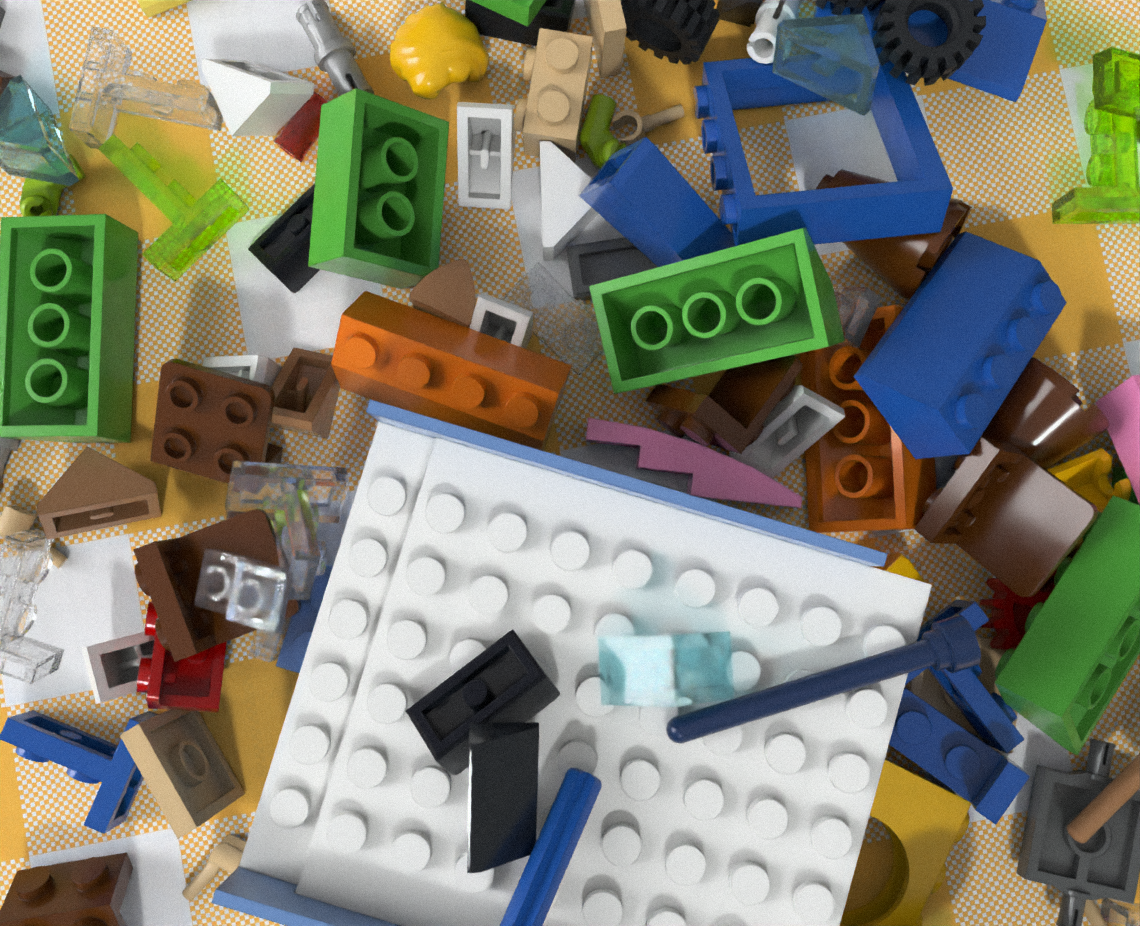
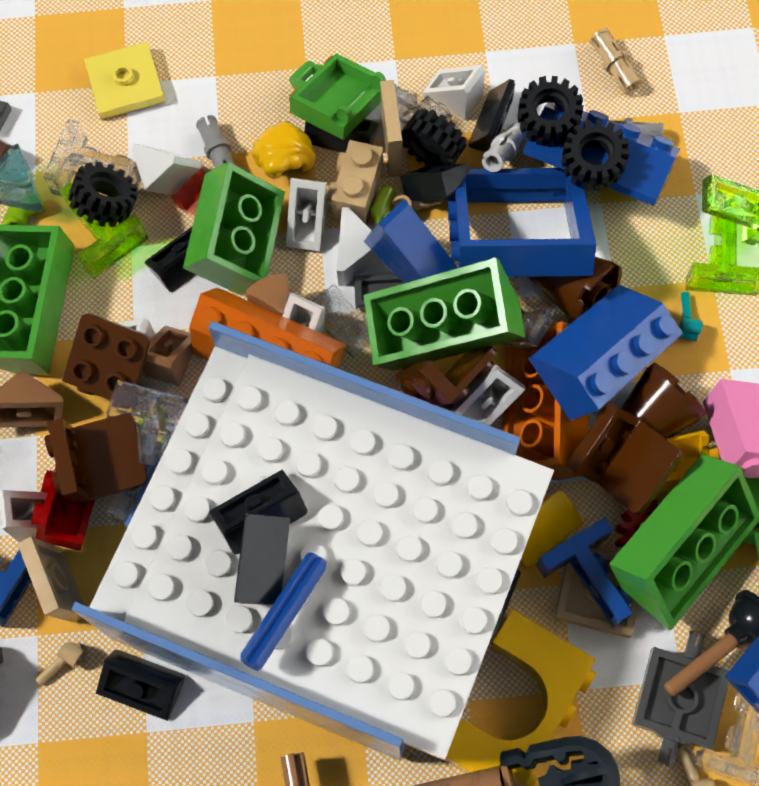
camera: 15 degrees right, 15 degrees down
(167, 128) = (110, 208): none -> black tyre
(244, 589) = (113, 455): clear slope -> none
(665, 669) = (376, 498): clear light blue slope -> none
(675, 85) = (433, 181): none -> black slope
(829, 58) = (529, 168): clear light blue slope -> none
(946, 646) = (558, 505): dark blue piece -> none
(956, 757) = (586, 627): blue bracket -> none
(1069, 282) = (690, 327): none -> teal hand

